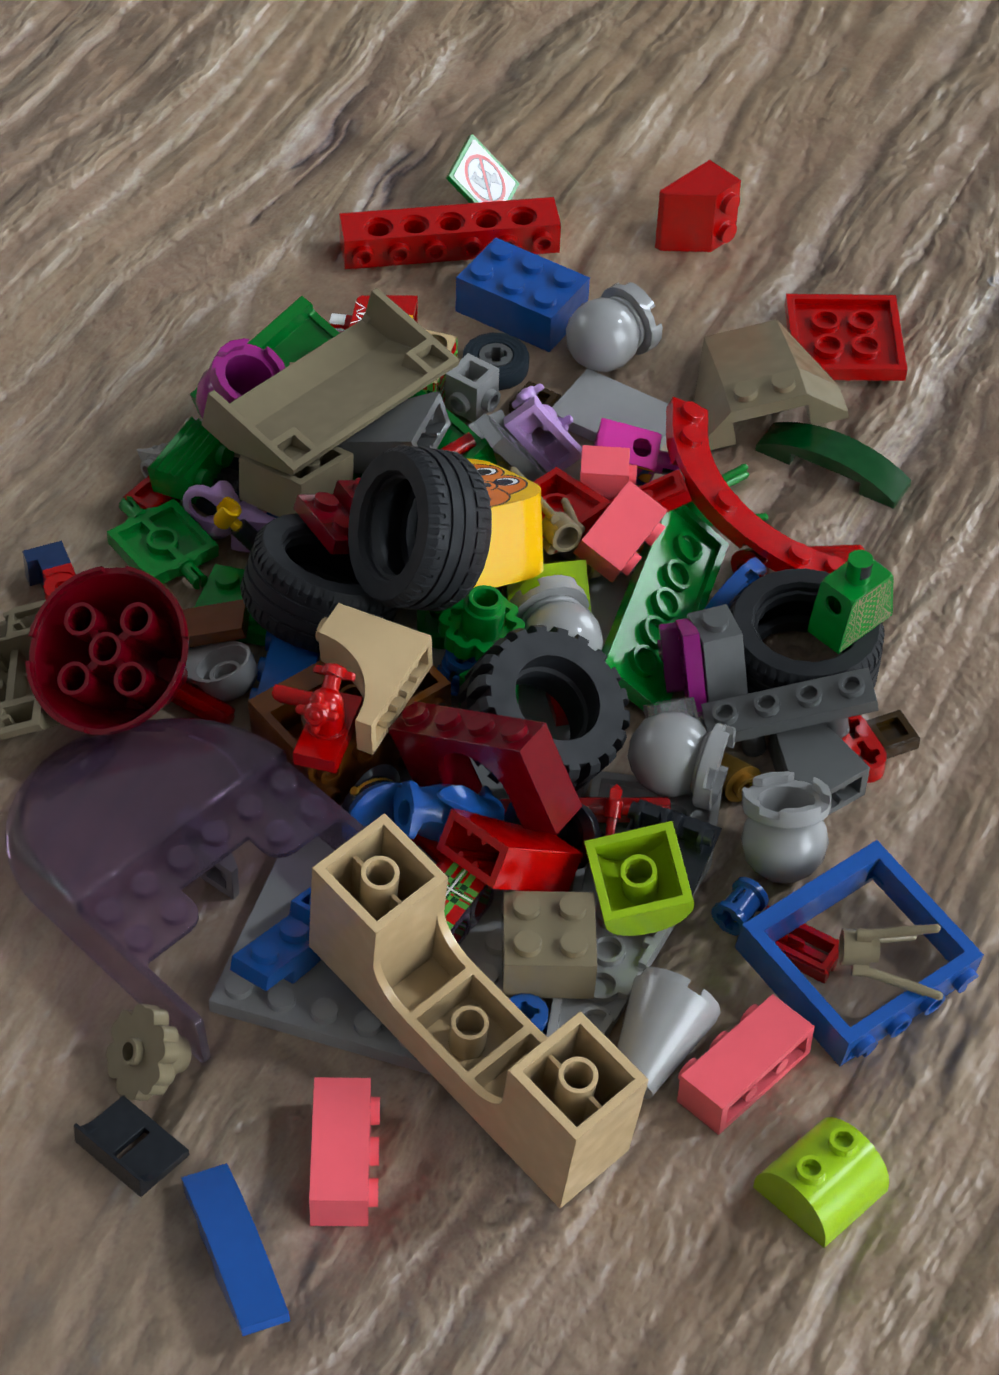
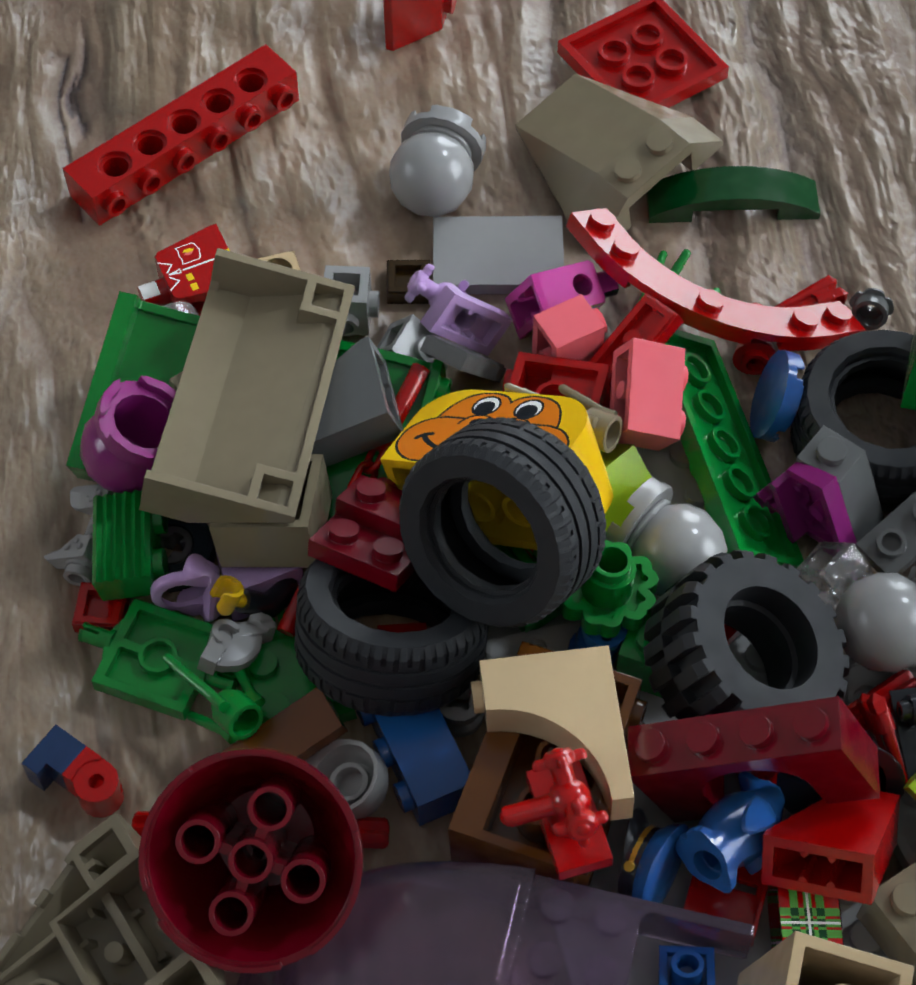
camera: 30 degrees left, 10 degrees up
(181, 582) = (234, 712): none -> green plant
(214, 553) = (236, 645): none -> light grey piece
(480, 175) = (172, 55): piece -> none
(506, 349) = (334, 236): black bush -> none
(520, 293) = (309, 167): blue brick -> none

